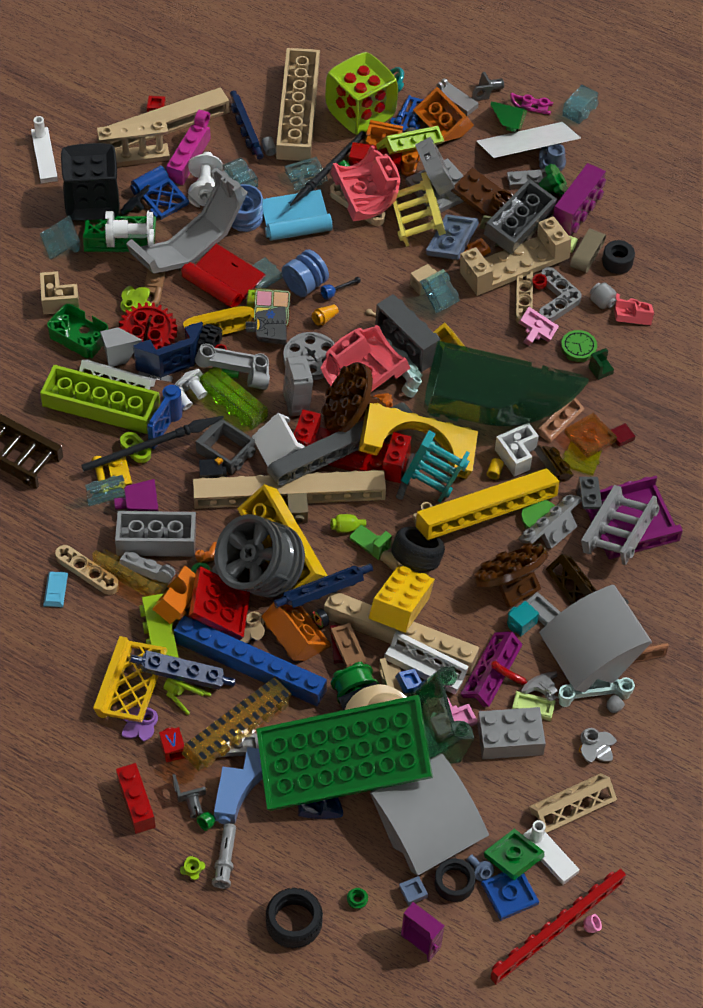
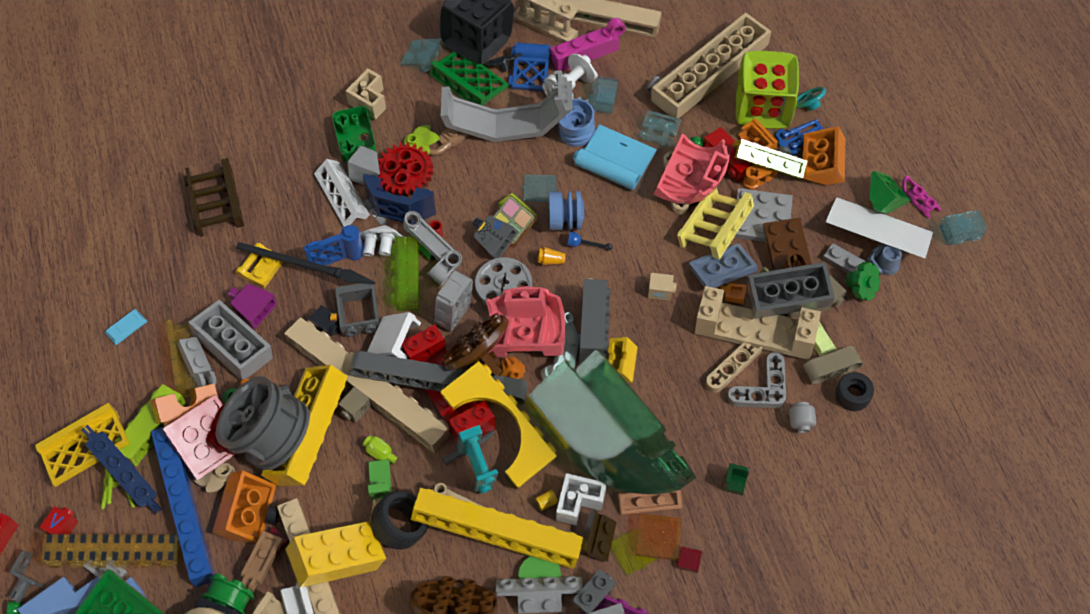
camera: 45 degrees right, 5 degrees up
(88, 568) = (159, 329): tan beam -> none
(99, 398) = (306, 196): lime brick -> none
(105, 490) = (233, 275): clear light blue plate -> none
(122, 229) = (451, 71): white piece -> none
(131, 437) = (291, 249): lime plate -> none
(145, 729) = (60, 492): medium lavender plate -> none
(210, 335) = (435, 210): black tyre -> none
(223, 276) = (503, 168): red door -> none
(229, 319) = (461, 202): yellow brick -> none
(246, 127) = (654, 52): dark blue plate -> none
(310, 186) = (653, 139): black piece -> none
(323, 586) = (288, 490): dark blue plate -> none
(434, 166) = (761, 193): light grey axle -> none
(440, 290) = (659, 306): clear light blue brick -> none
(460, 99) = (856, 147): light grey hinge -> none
(486, 86) = (894, 155): dark grey bracket -> none
(537, 326) = (713, 400): bright pink hinge -> none
(539, 281) = (761, 359): red hinge -> none
(578, 345) = (736, 446): bright green tile -> none
(580, 198) = (866, 313): magenta brick -> none
(633, 311) = (818, 451): coral slope -> none

